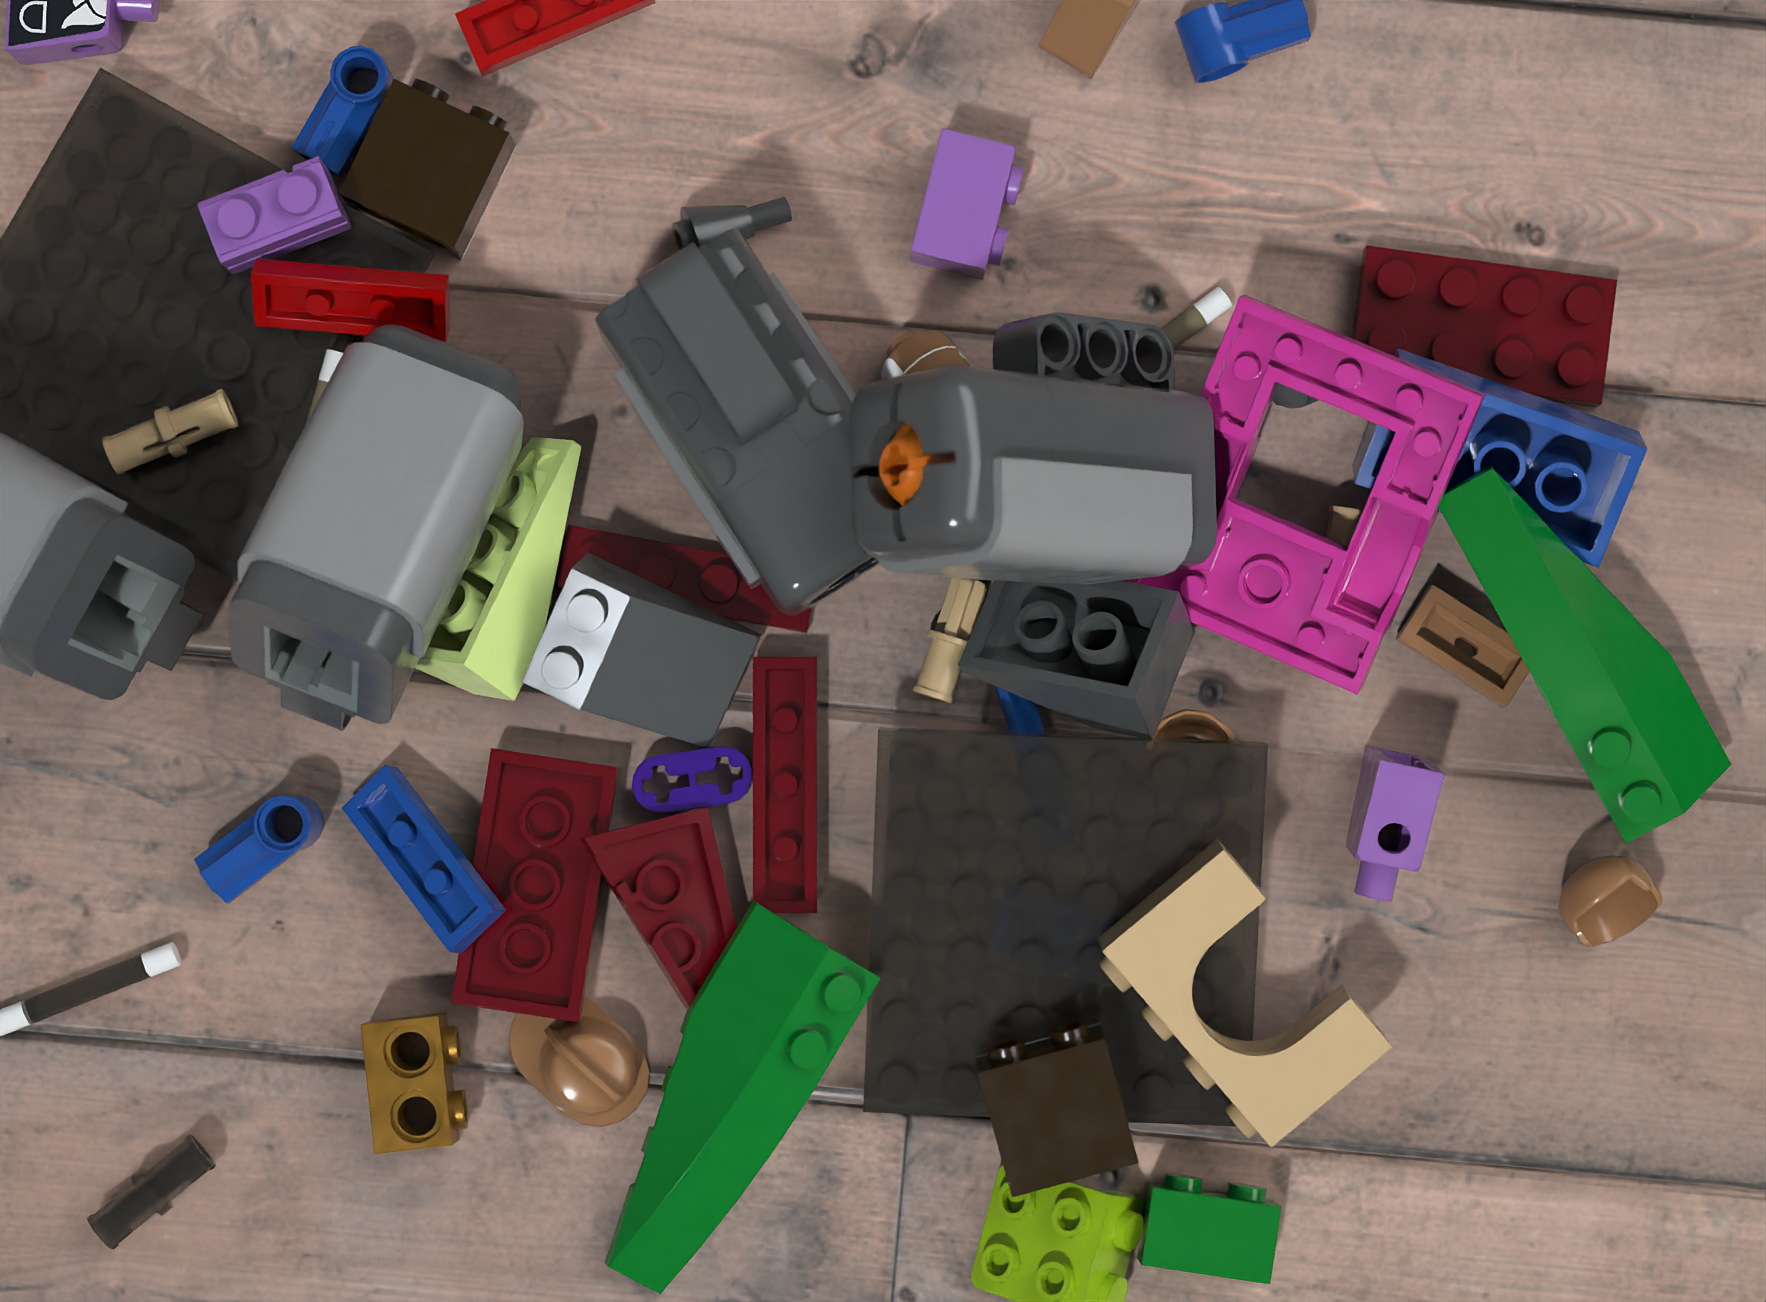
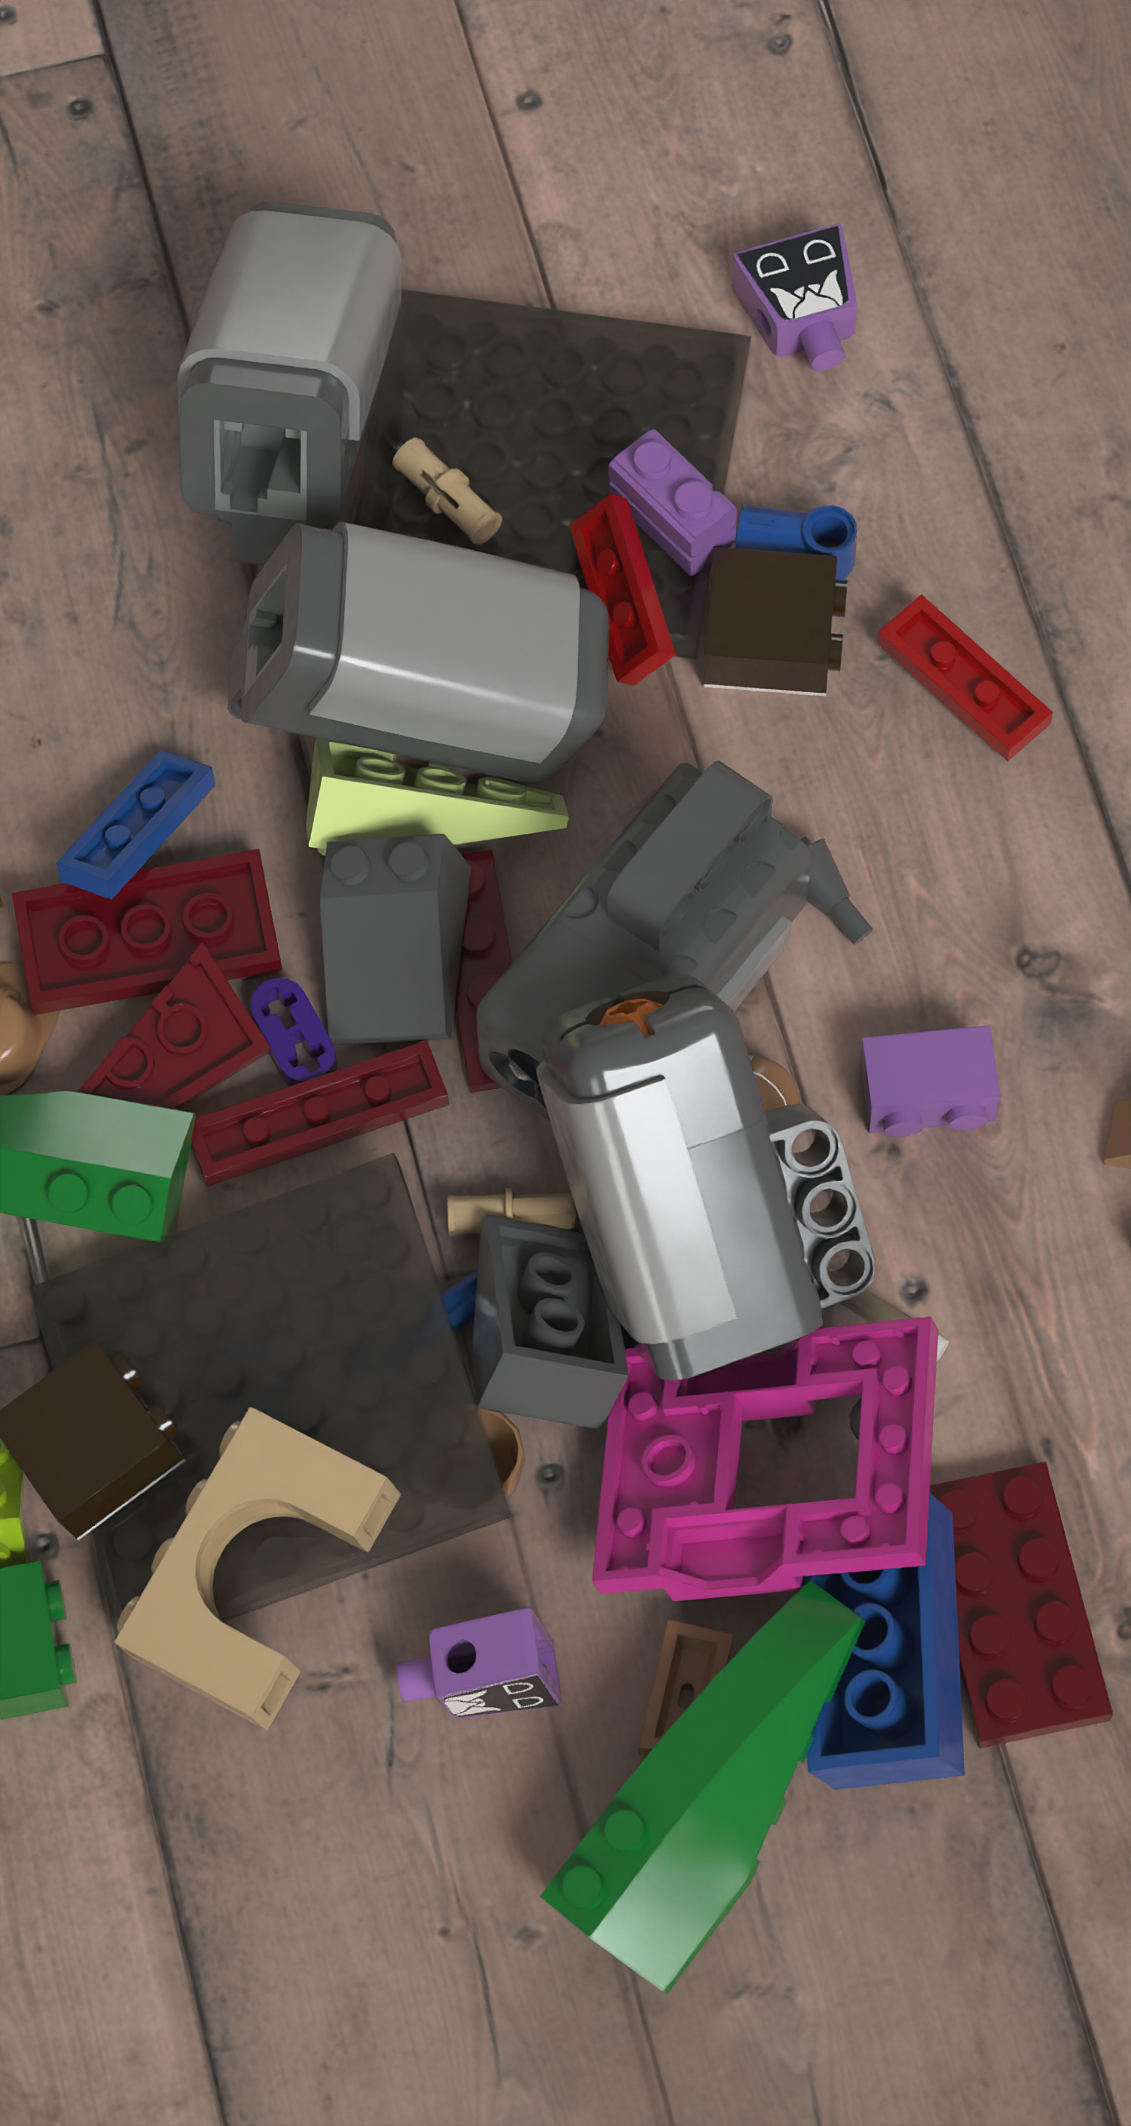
camera: 80 degrees right, 20 degrees down
(257, 847) = (104, 692): blue piece -> none
(1608, 899) = (478, 1914): medium nougat hair -> none

